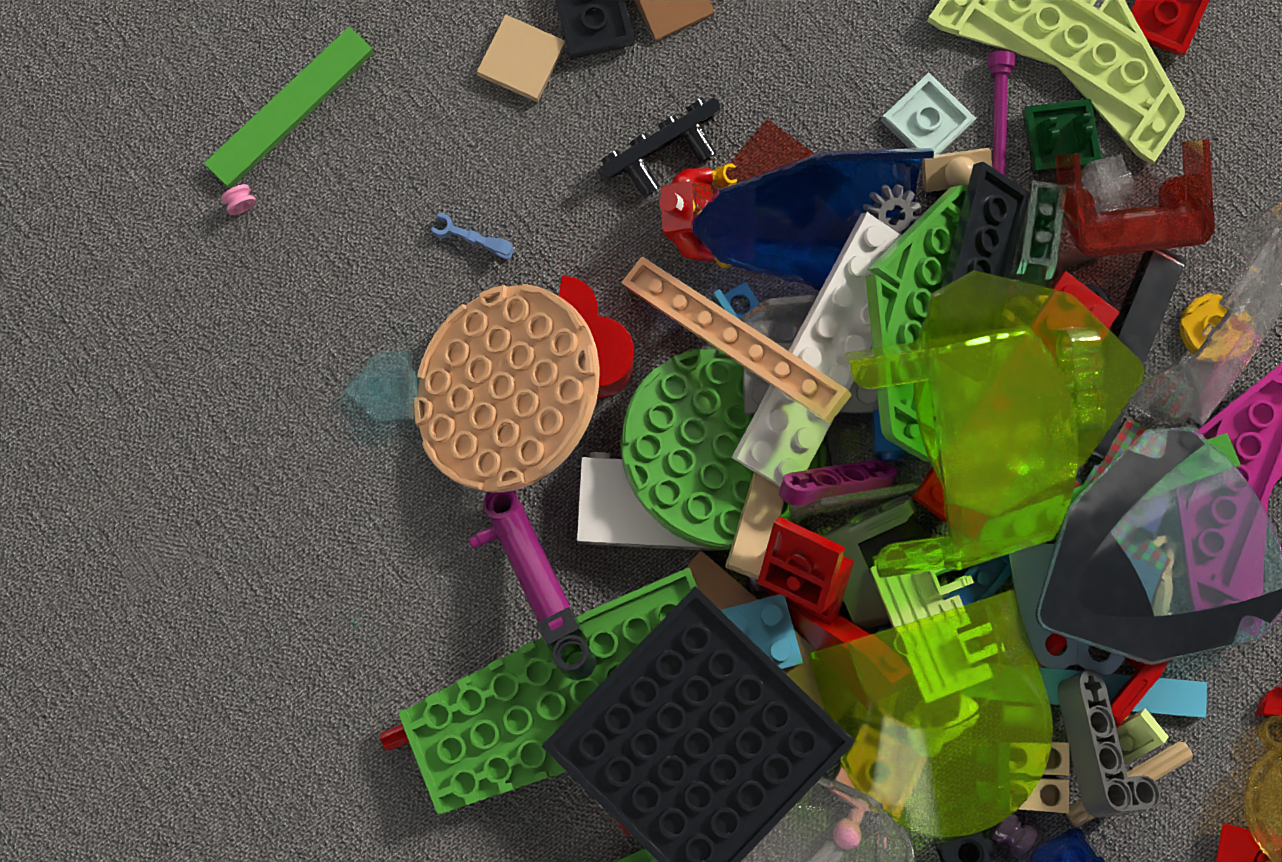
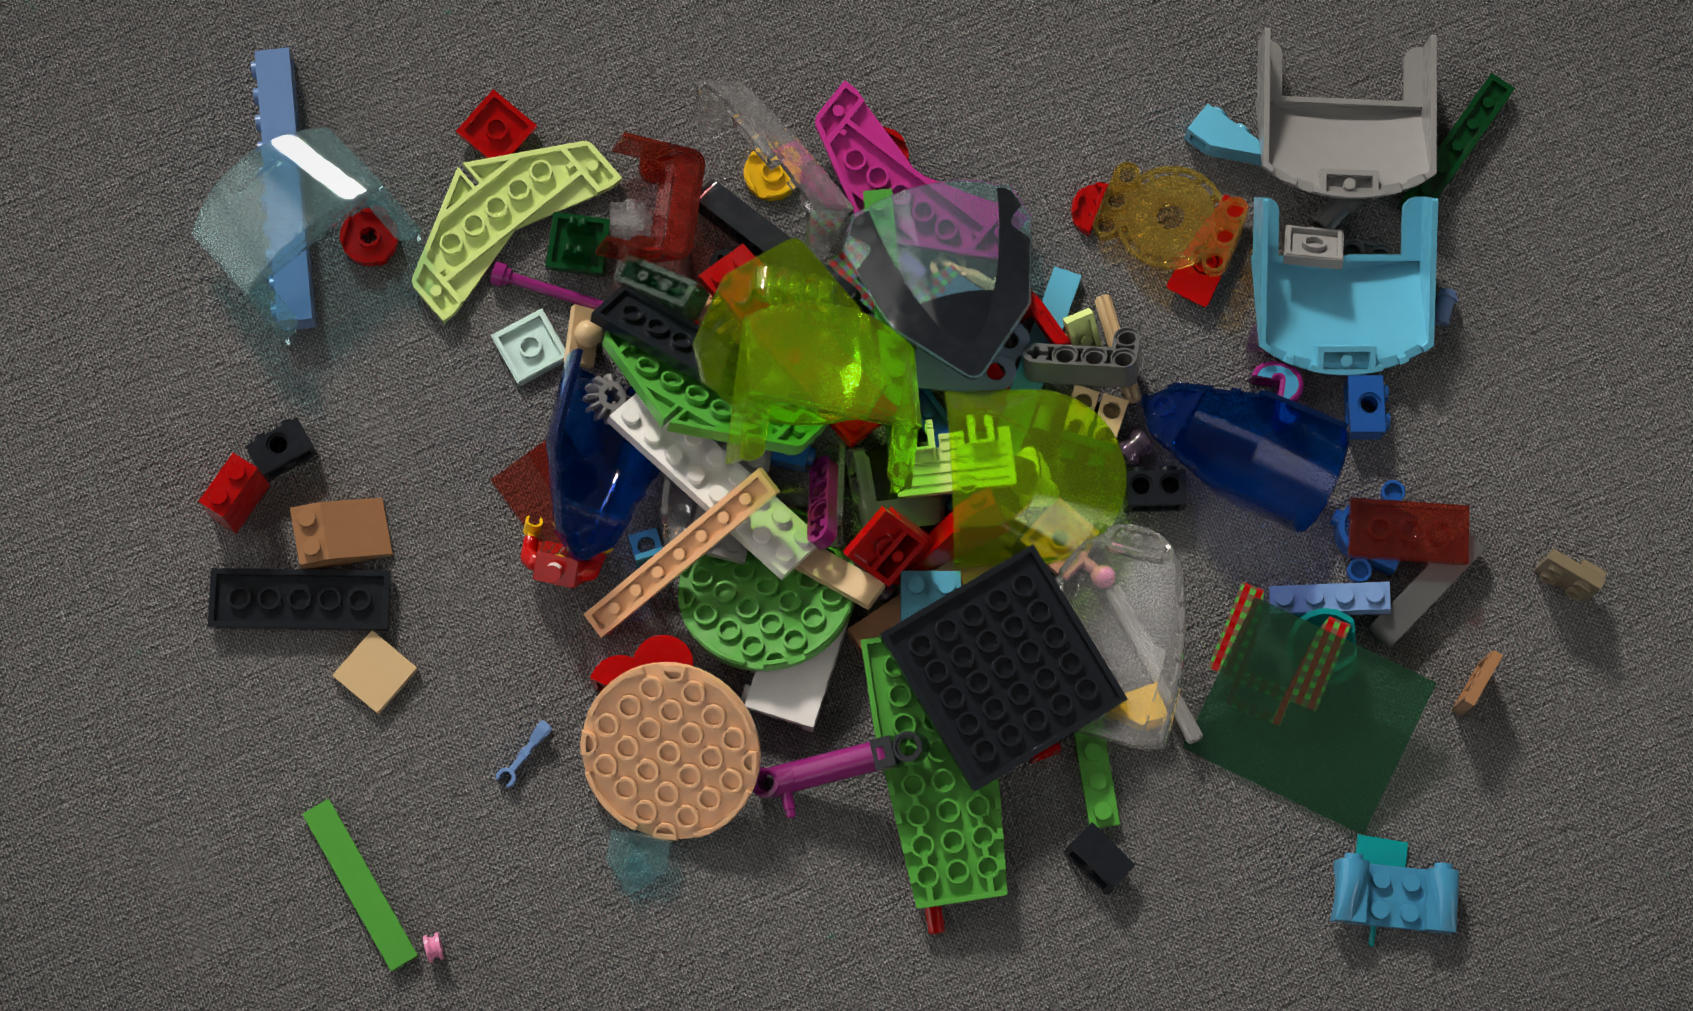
camera: 75 degrees left, 5 degrees down
(671, 129) = (487, 587): black plate -> none

